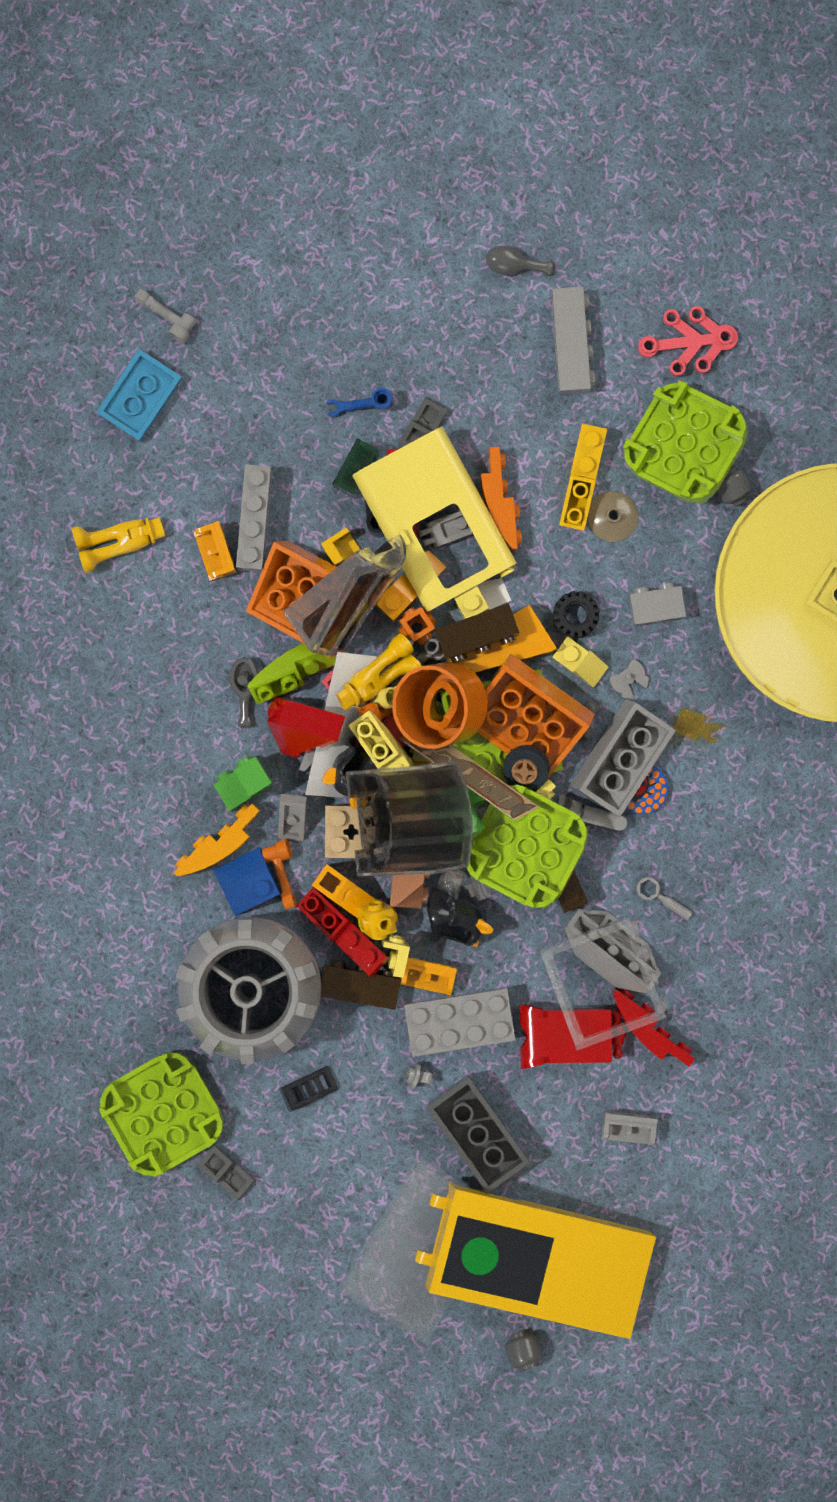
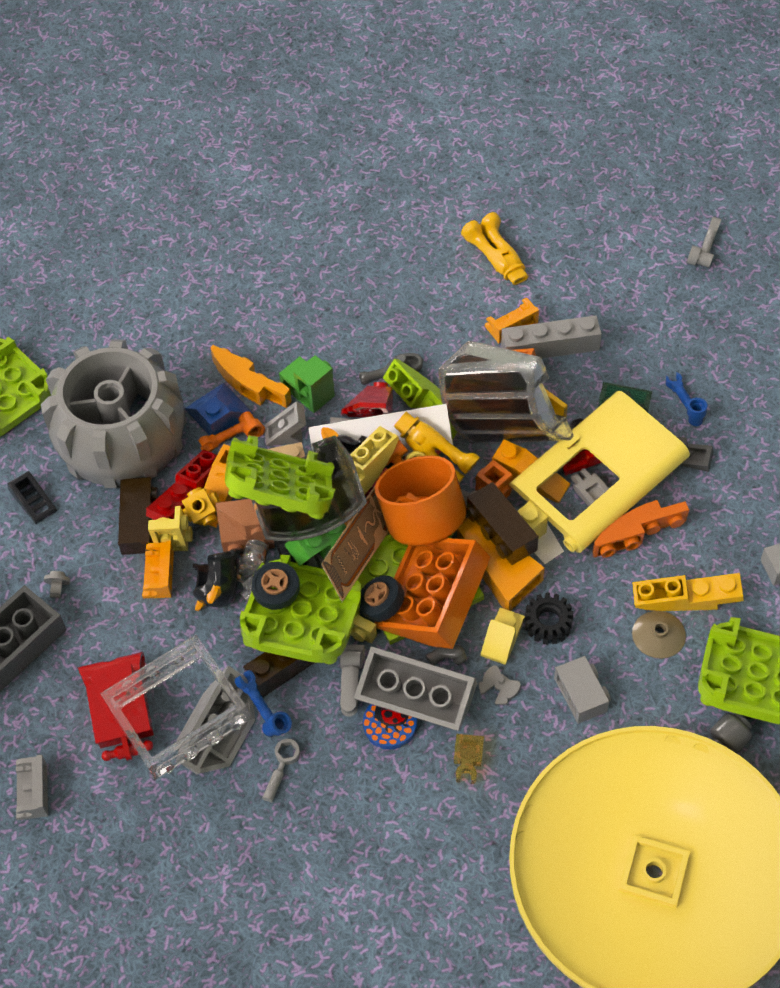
camera: 75 degrees right, 30 degrees down
(139, 395) = (629, 240): dark azure plate -> none
(411, 840) = (279, 478): none -> lime plate
(459, 1021) = (116, 604): light grey brick -> none
(506, 874) = (279, 576): none -> black wheel
(624, 893) = (274, 723): none -> blue brick
(655, 1040) = (129, 787): red slope -> none

